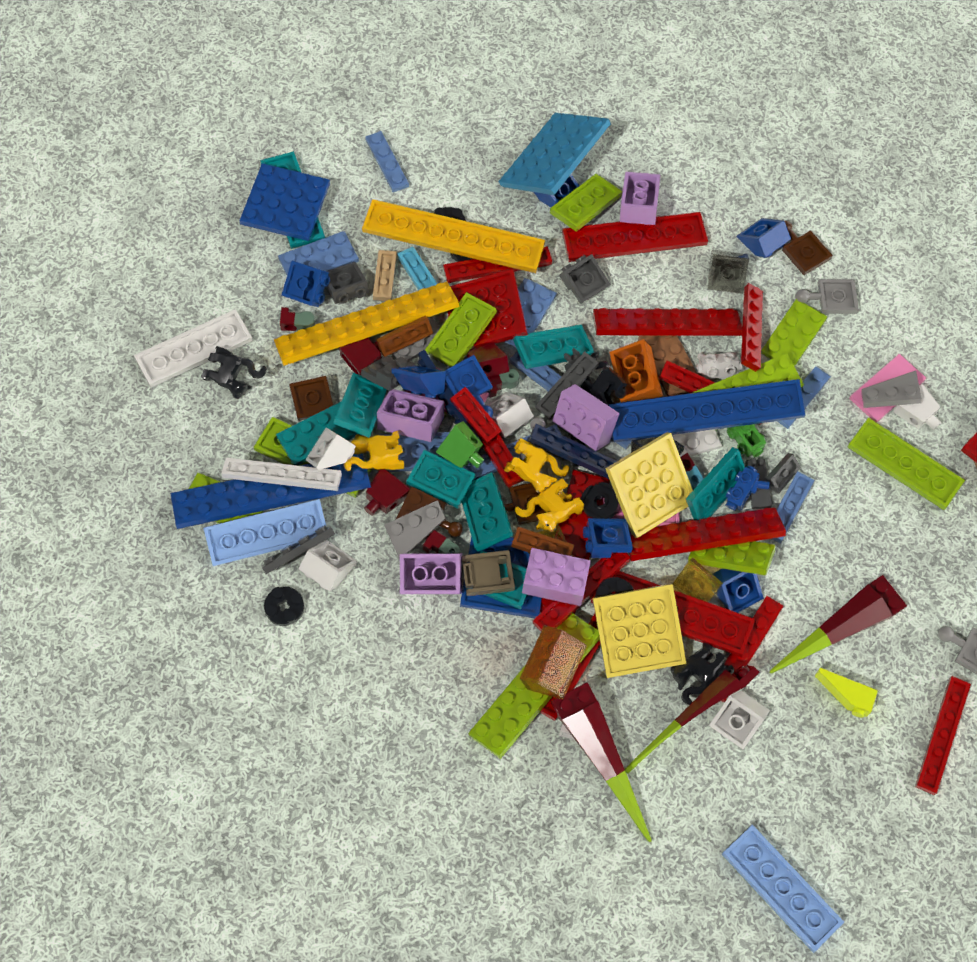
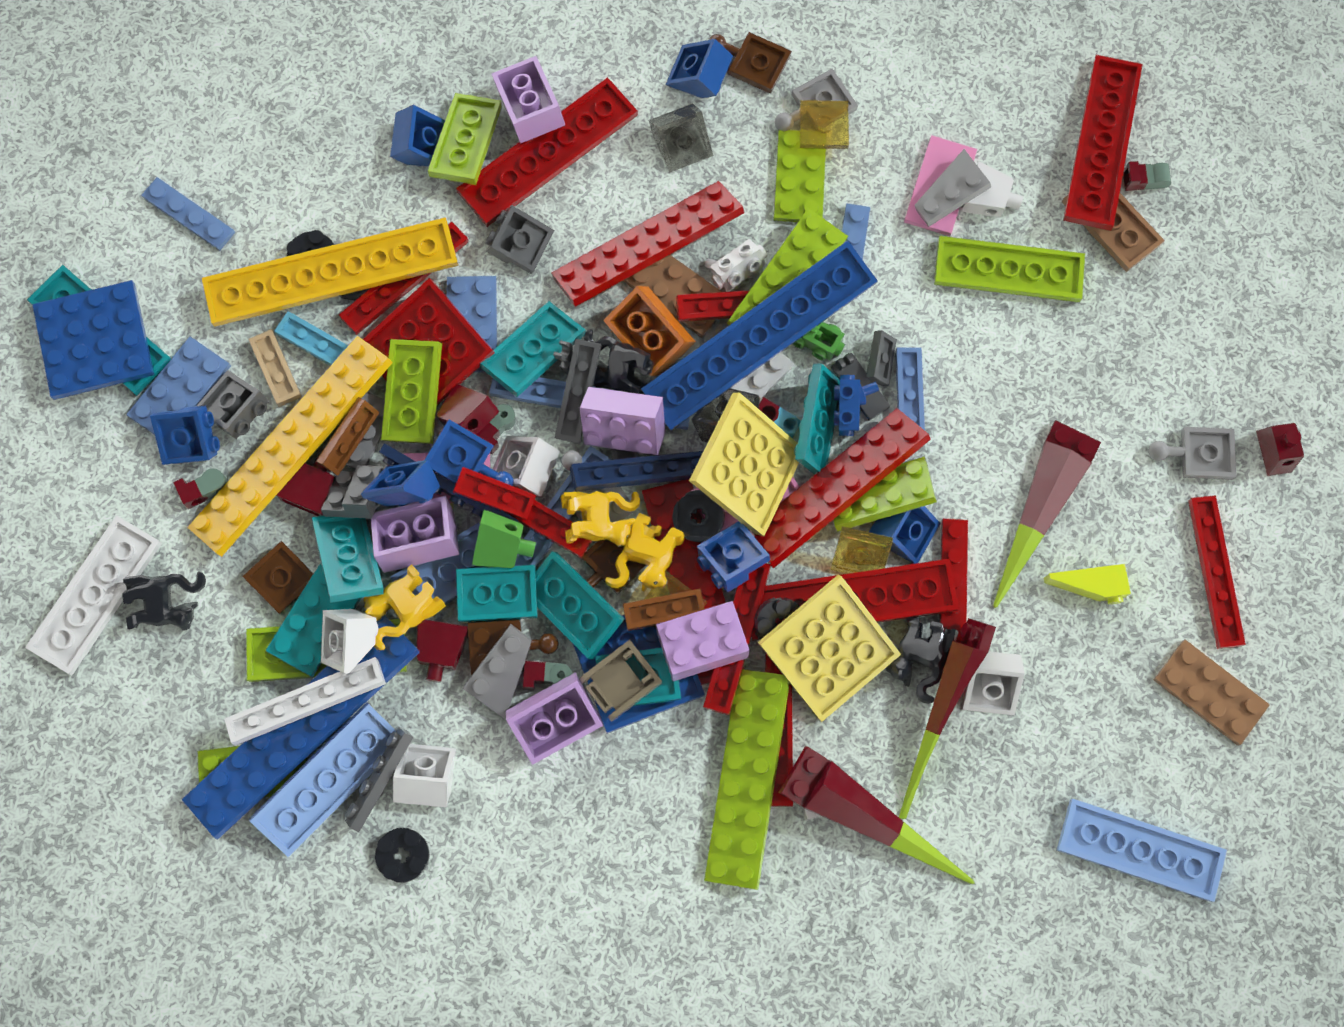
camera: 30 degrees left, 10 degrees up
(552, 662) = (757, 747): clear orange slope -> none
(554, 153) = (391, 94): dark azure plate -> none
(752, 327) = (751, 197): red plate -> none
(828, 309) = (824, 124): none -> clear yellow tile
(894, 813) = (1211, 692): none -> medium nougat plate

